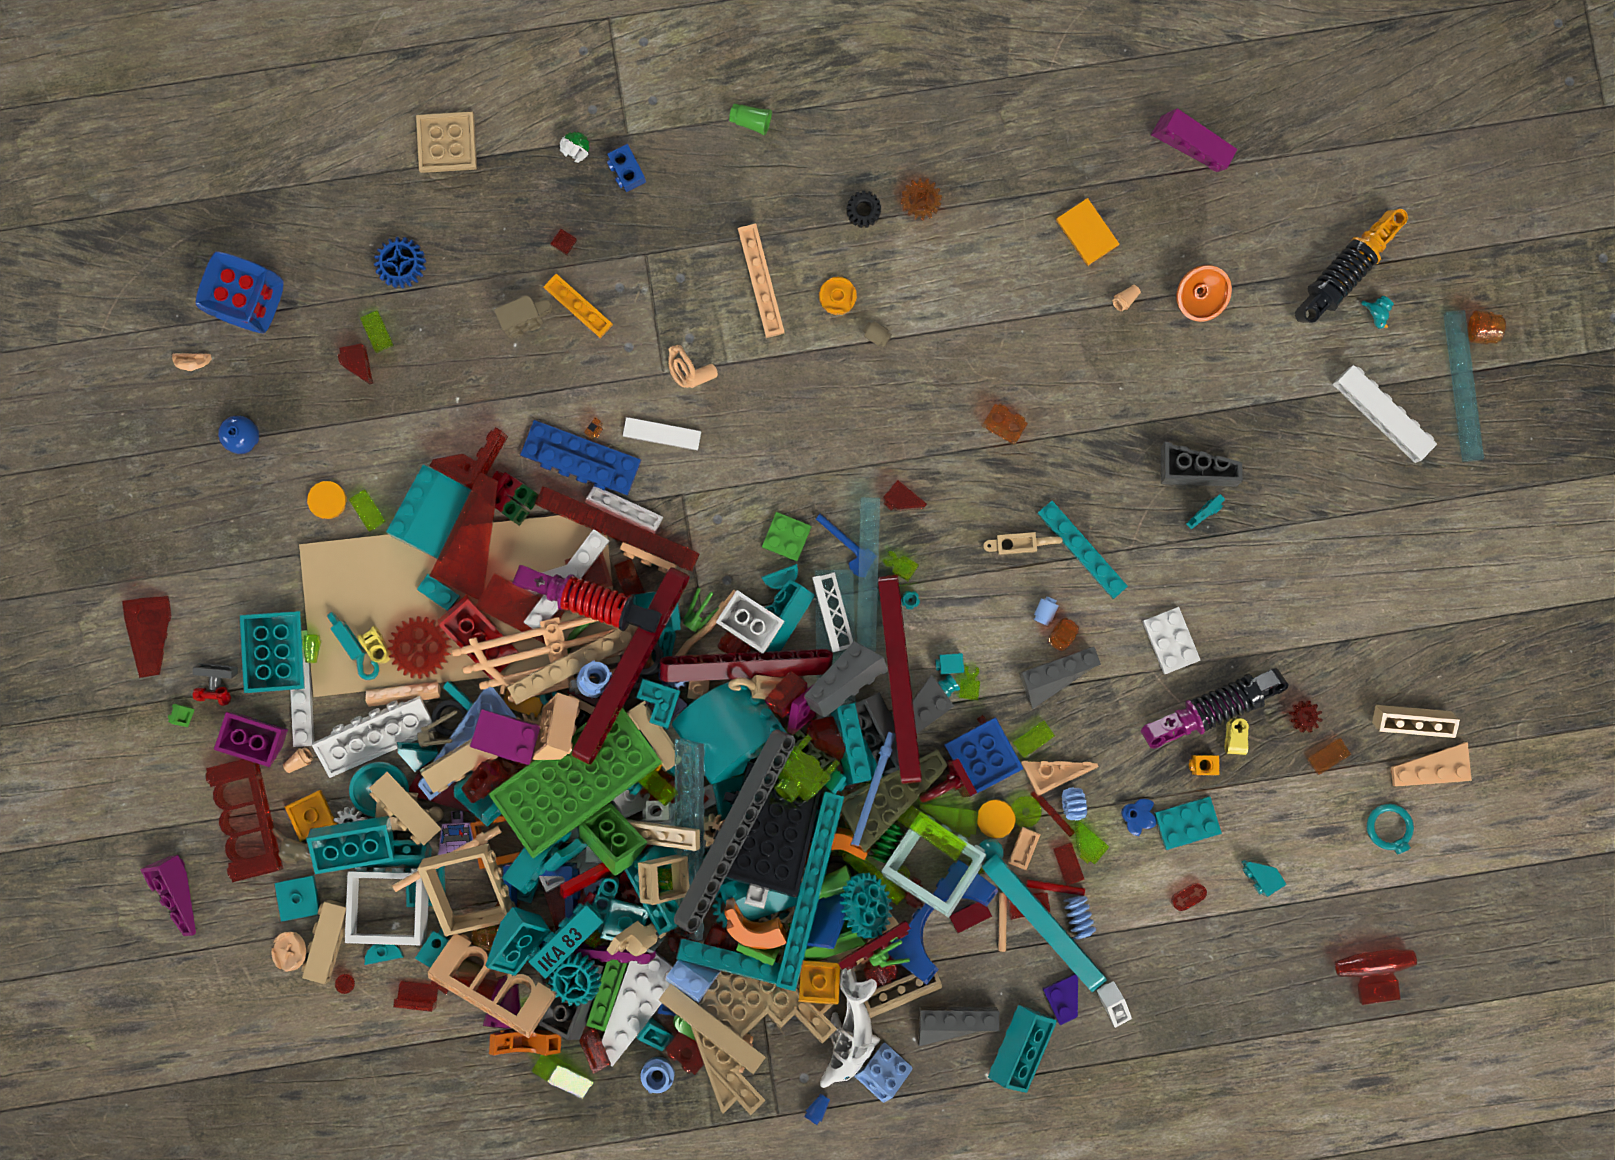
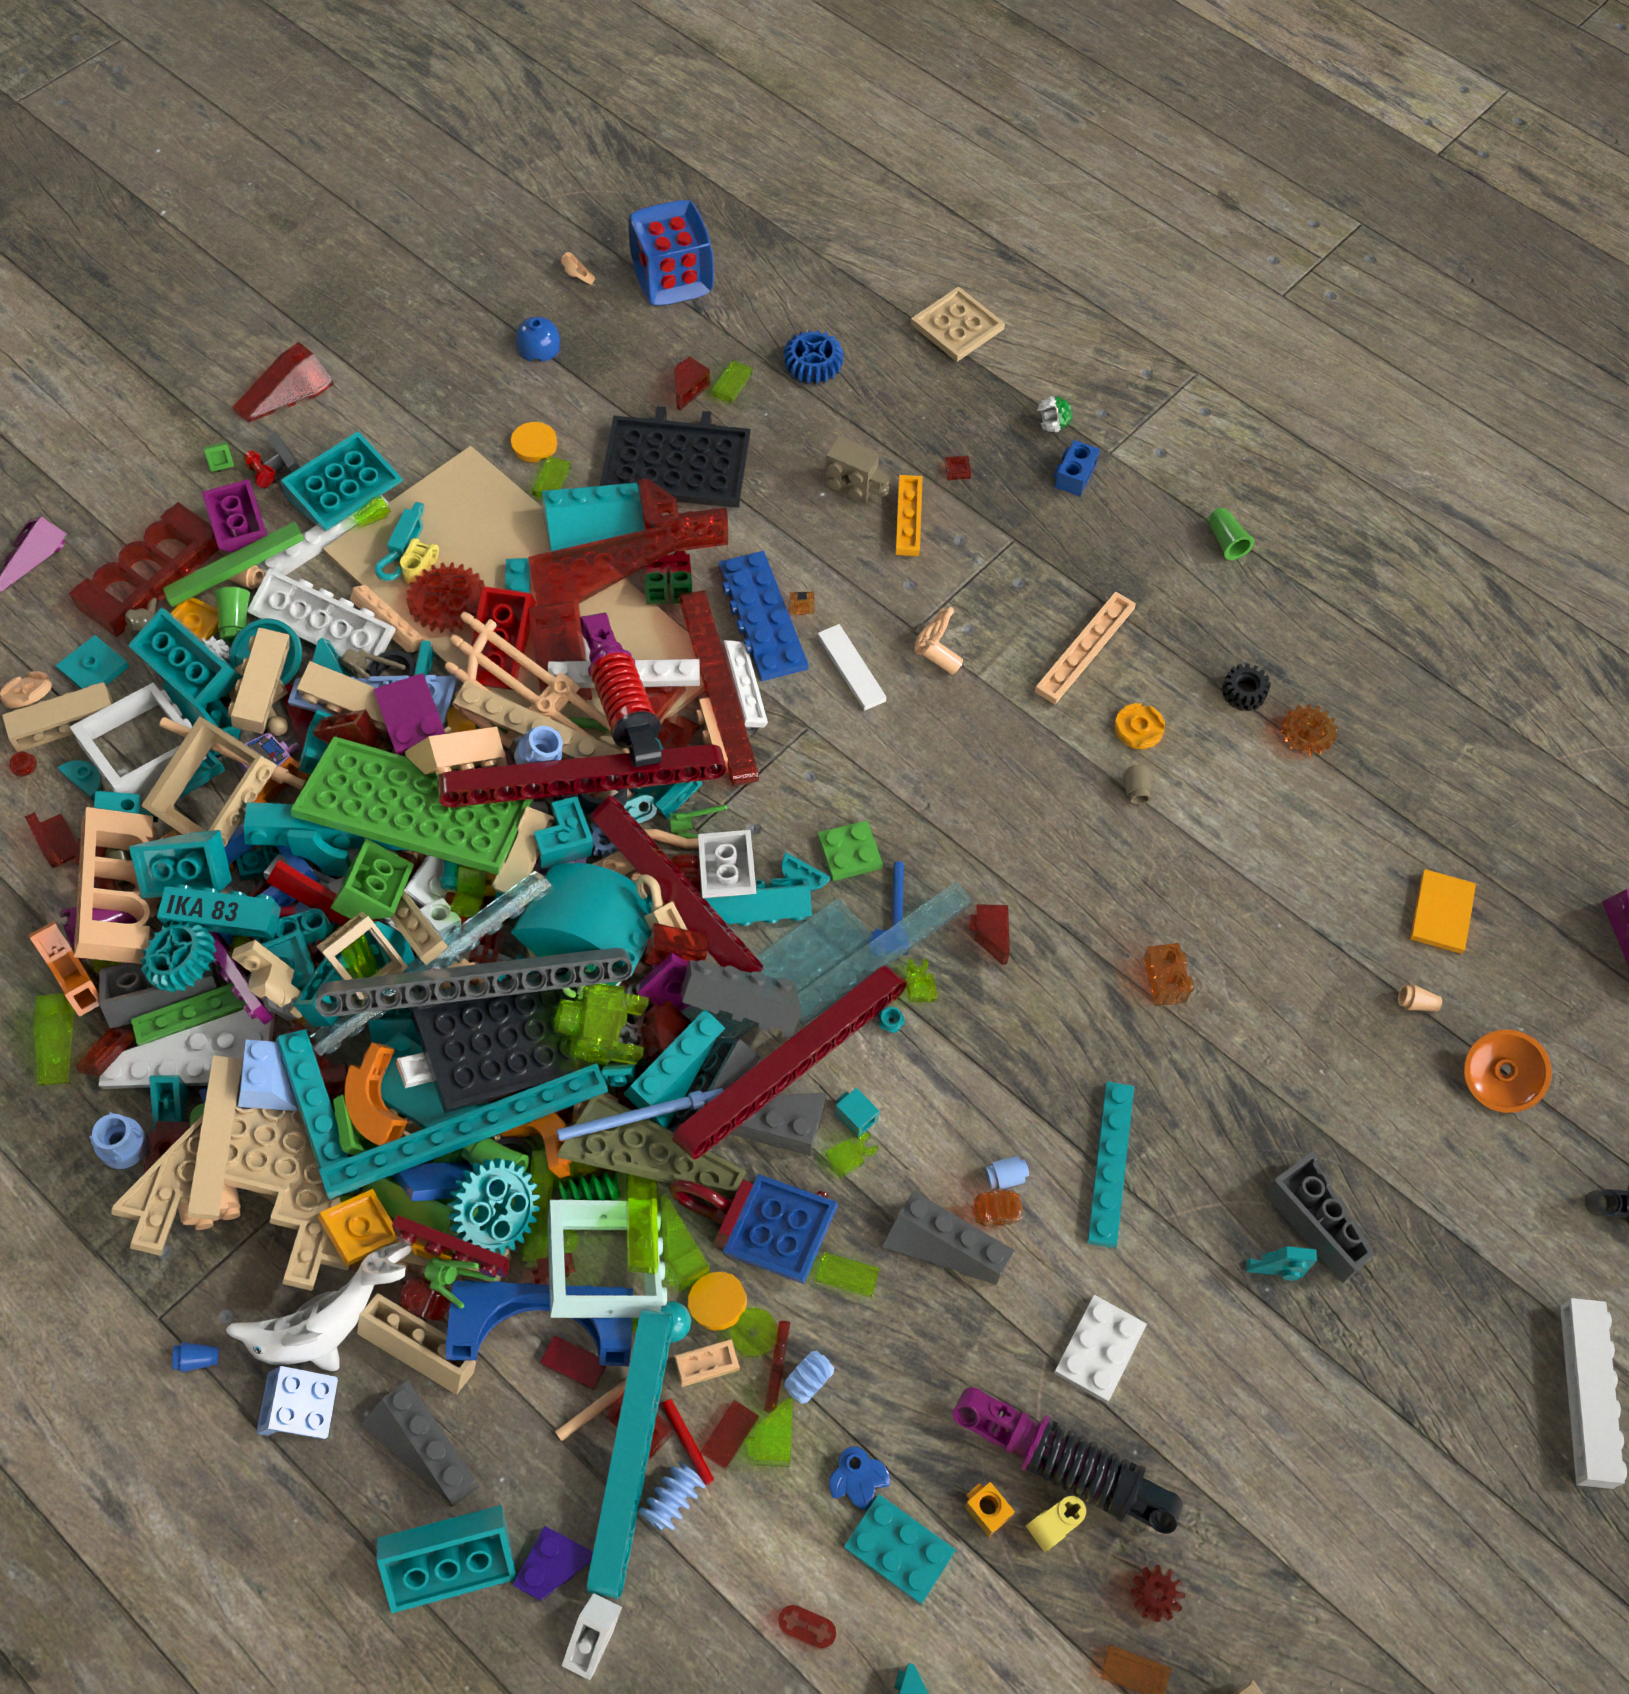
camera: 55 degrees right, 25 degrees down
(288, 763) = (233, 564): none -> bright green tile
(327, 789) = (232, 611): none -> bright green plant
(416, 420) = (685, 459): none -> black hinge
(825, 610) = (802, 933): white fence -> none
(949, 685) = (829, 1128): teal wheel -> none
(1021, 543) = (1058, 1090): tan piece -> none
(1049, 775) = (820, 1326): light nougat wing -> none

